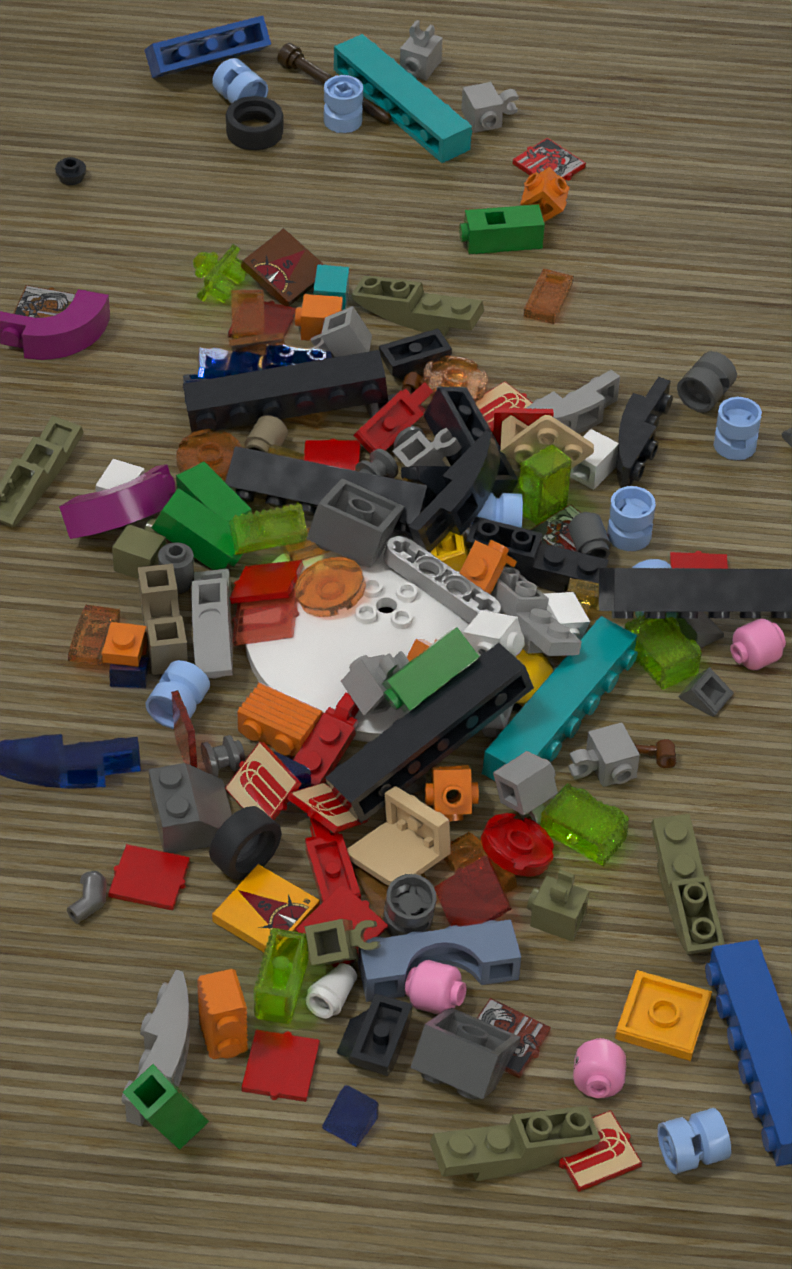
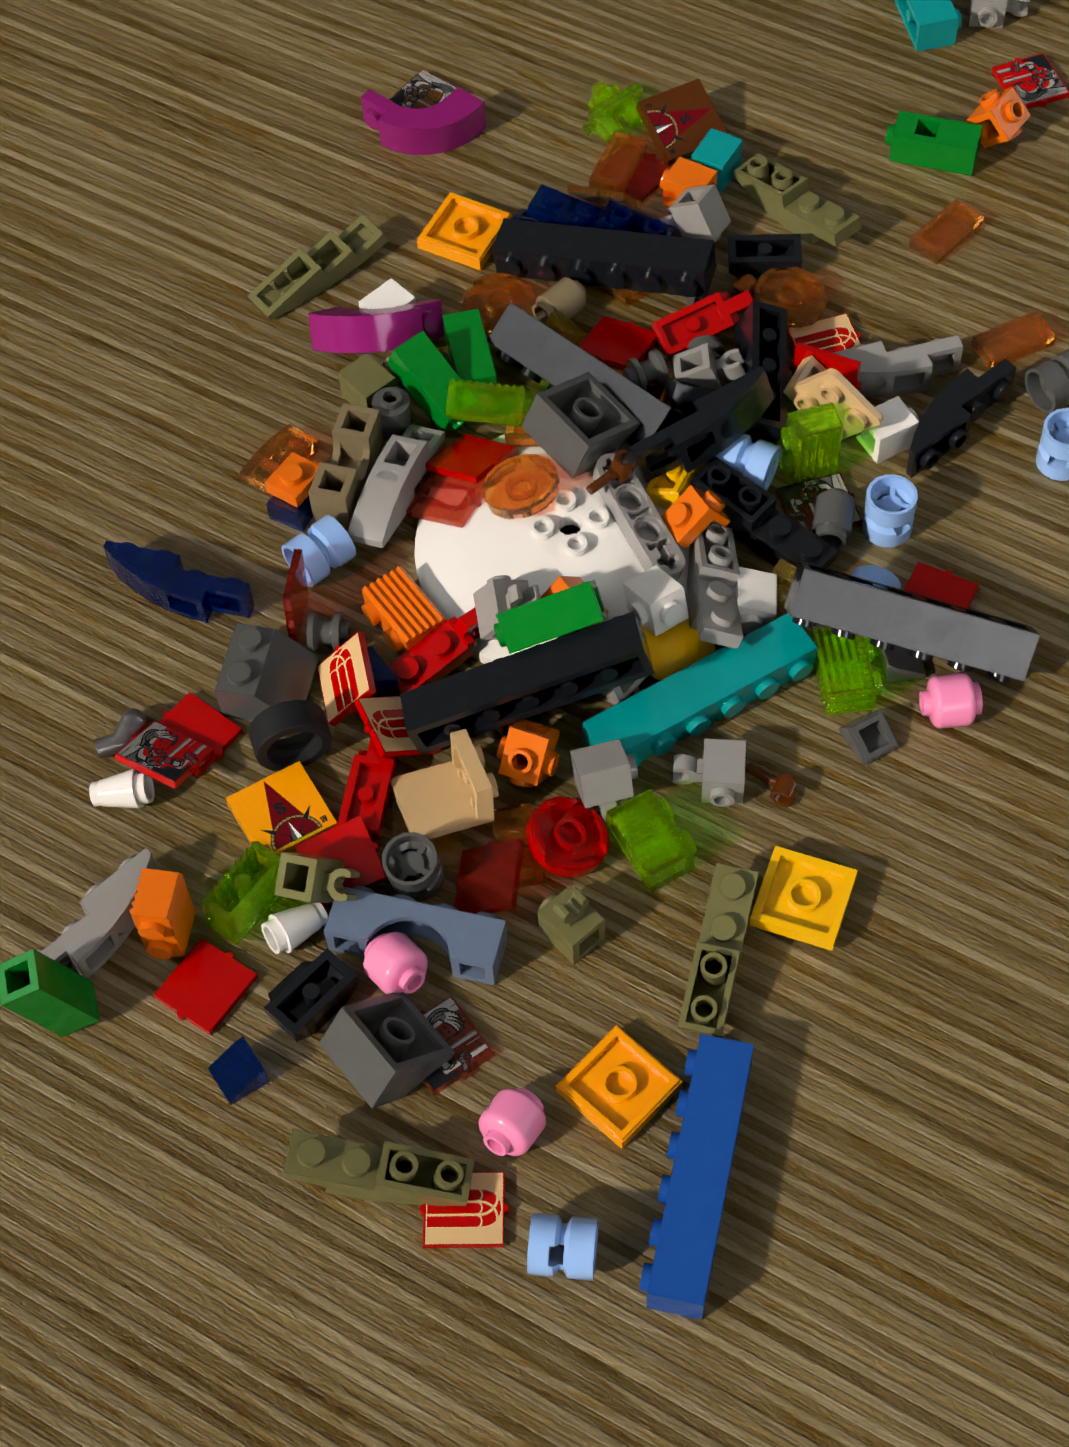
camera: 30 degrees right, 10 degrees up
(118, 938) = (123, 790): none -> white cone
(141, 896) = (164, 754): none -> piece
(144, 406) = (463, 231): none -> light orange tile
(408, 547) = (617, 471): none -> reddish brown hand
(649, 363) = (1014, 339): none -> clear orange tile
(729, 825) = (803, 898): none -> yellow plate

